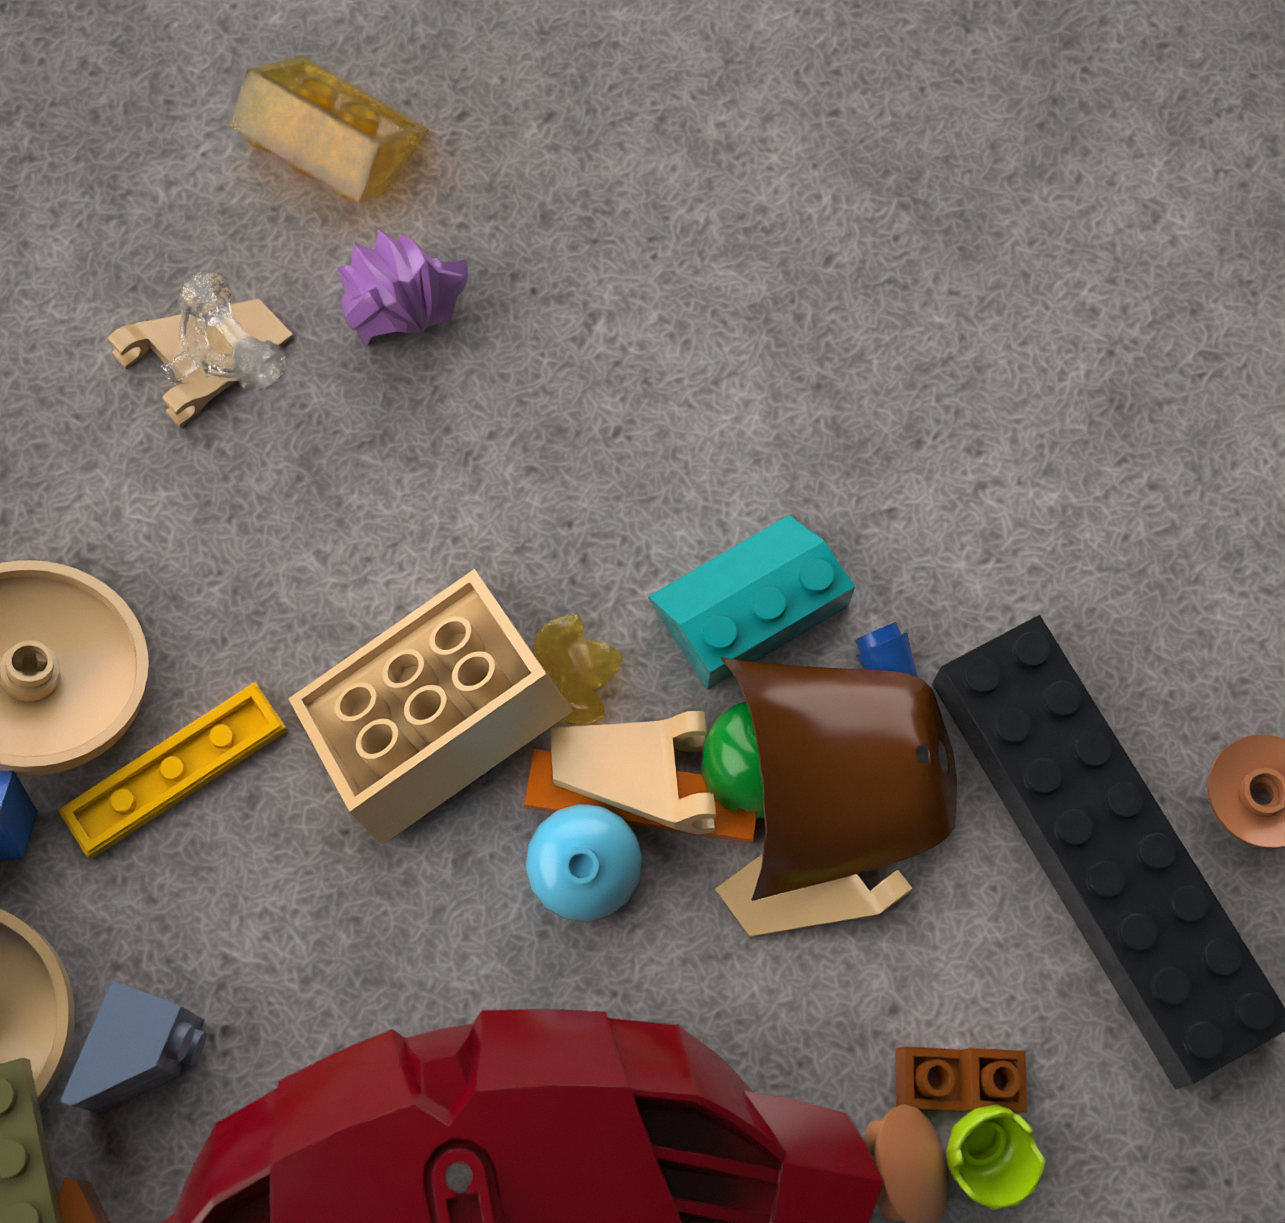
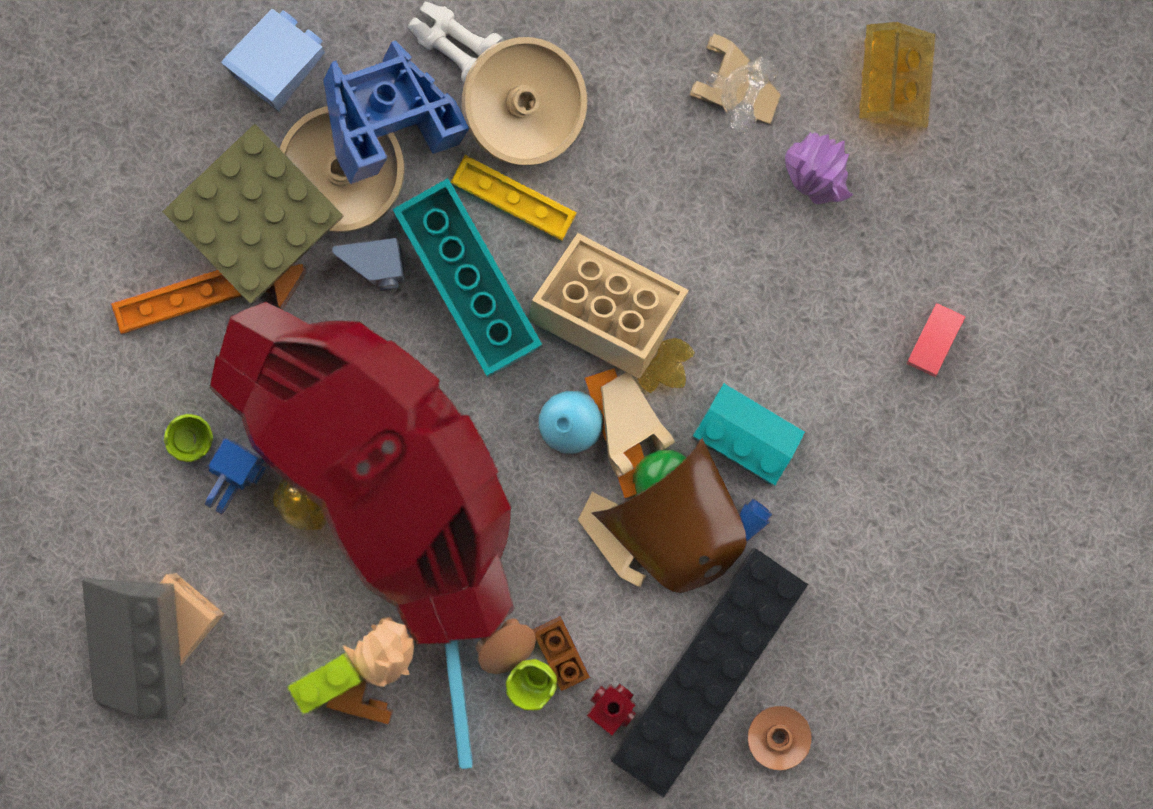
camera: 60 degrees right, 15 degrees up
(252, 905) = (467, 278): none -> teal brick
(749, 261) = (936, 340): none -> coral slope
(1080, 1050) = (607, 719): none -> dark red brick

